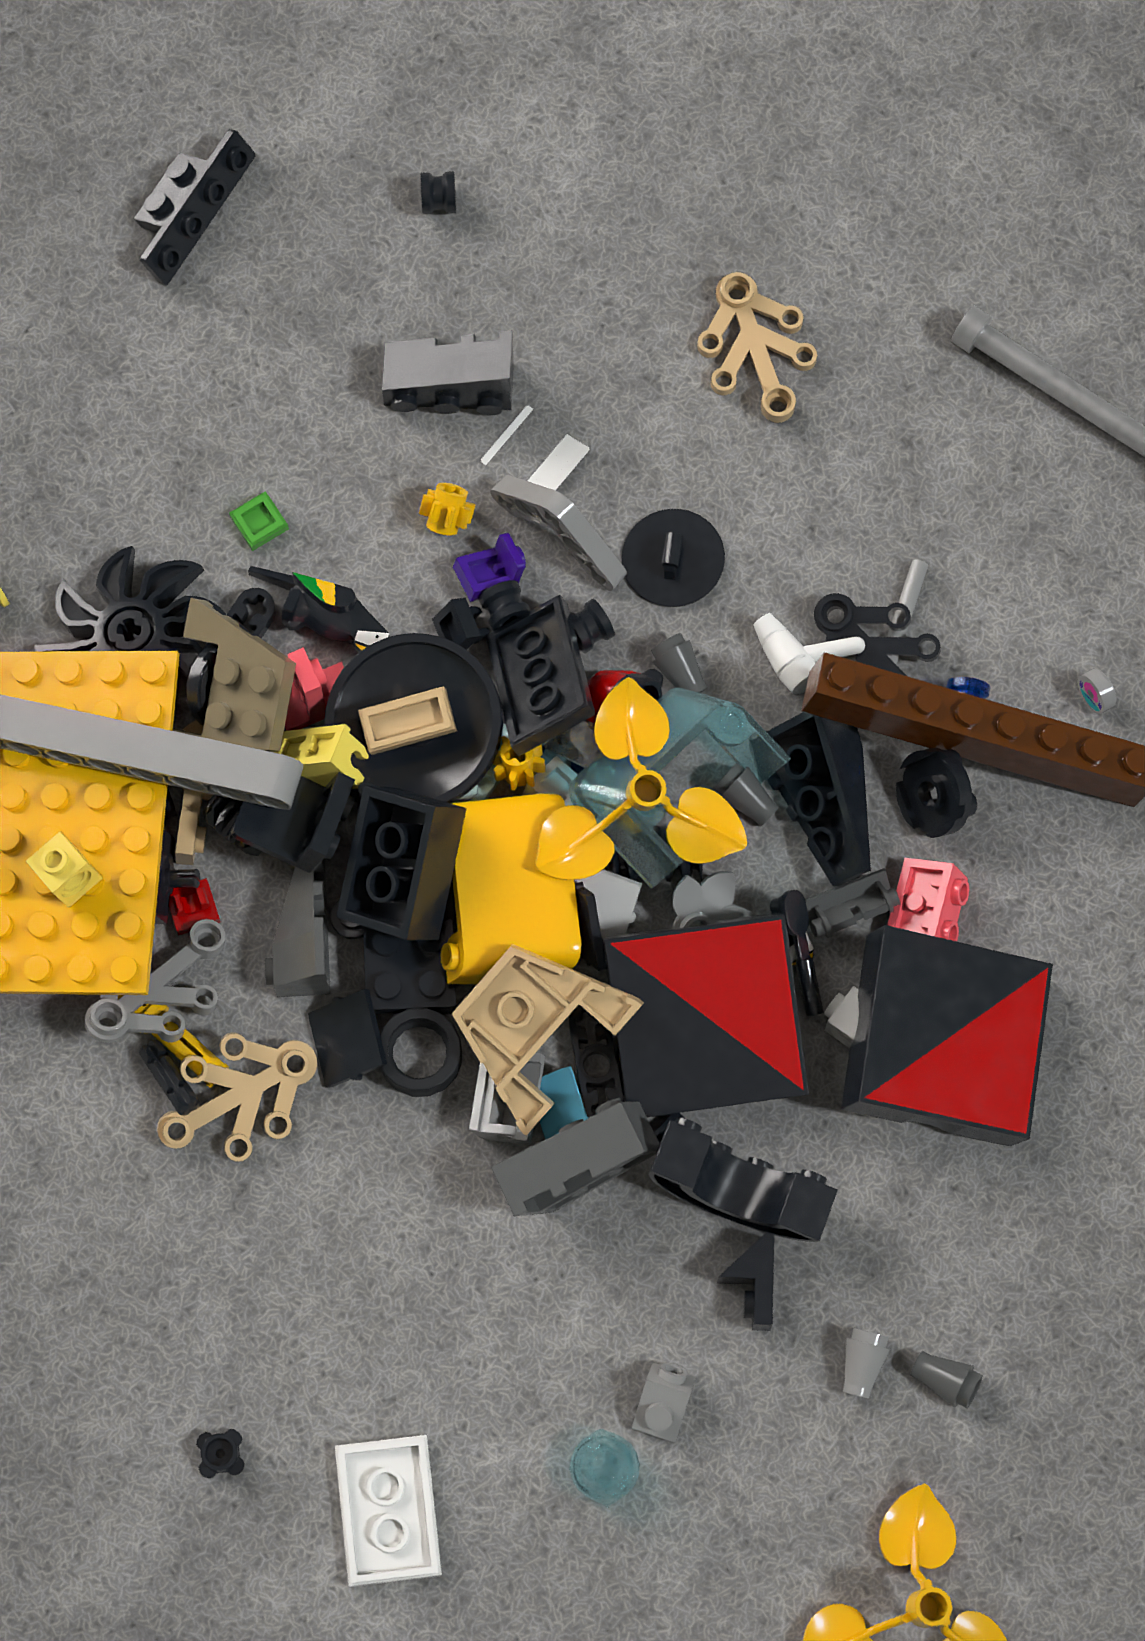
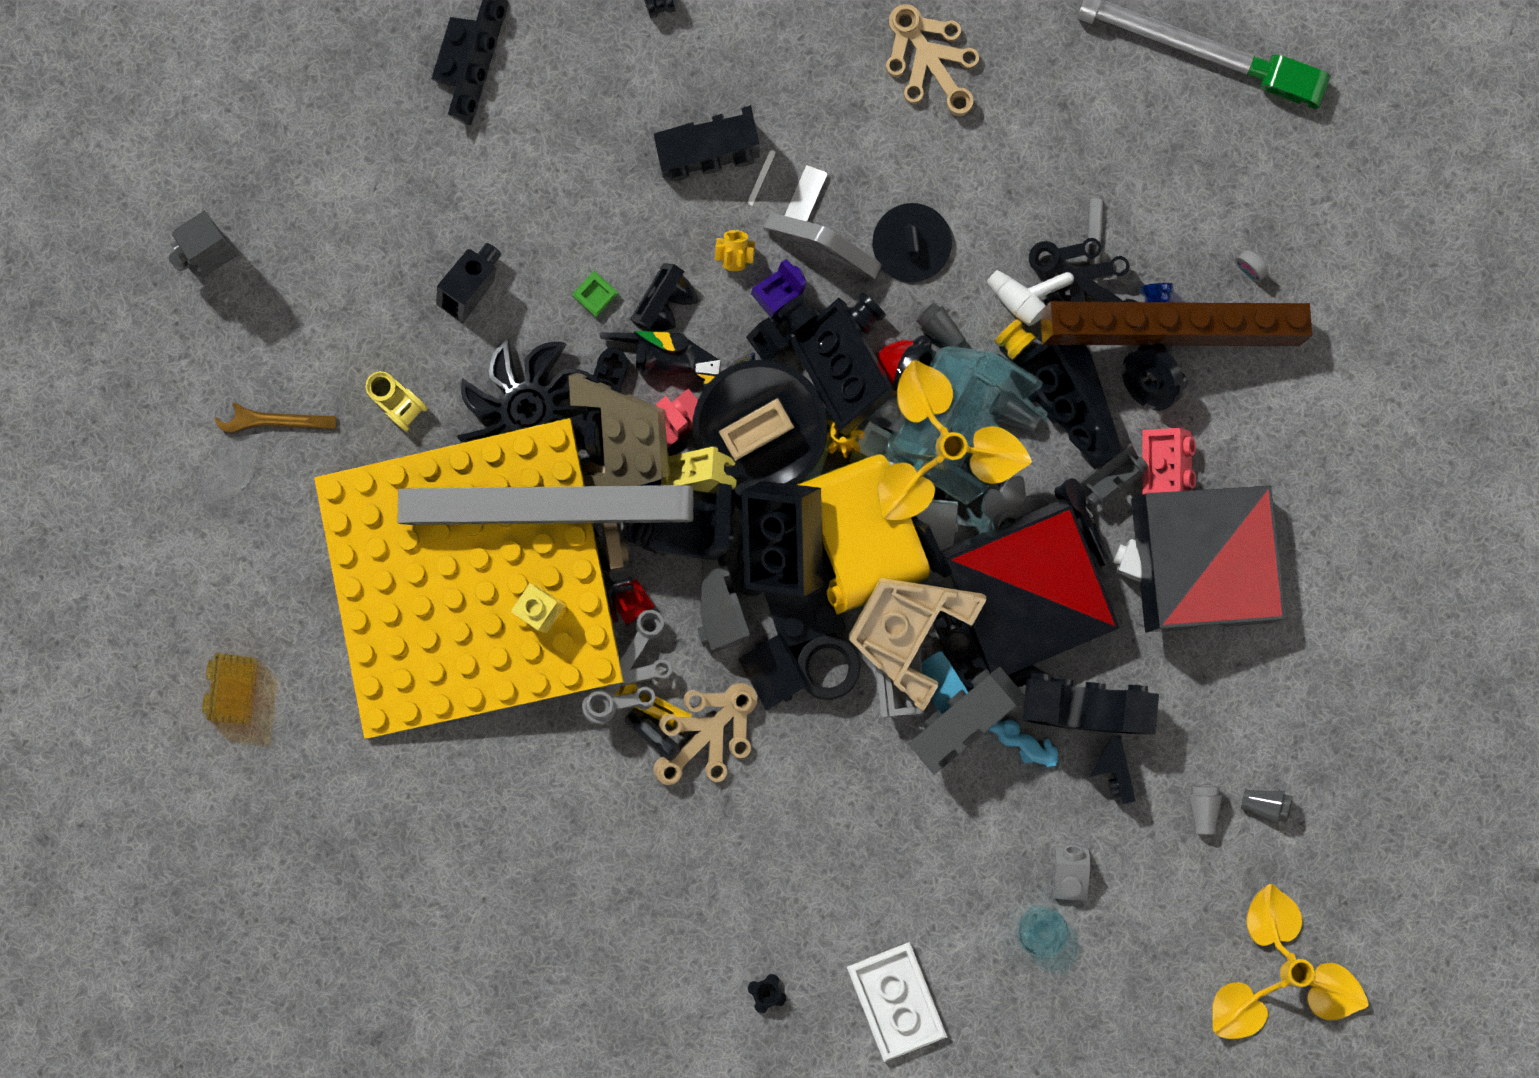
camera: 15 degrees left, 10 degrees up
(102, 462) = (467, 282): none -> black torso
(356, 534) = (667, 285): none -> black tile
(654, 1227) = (1031, 750): none -> medium azure animal
(770, 704) = (1014, 339): none -> yellow wheel

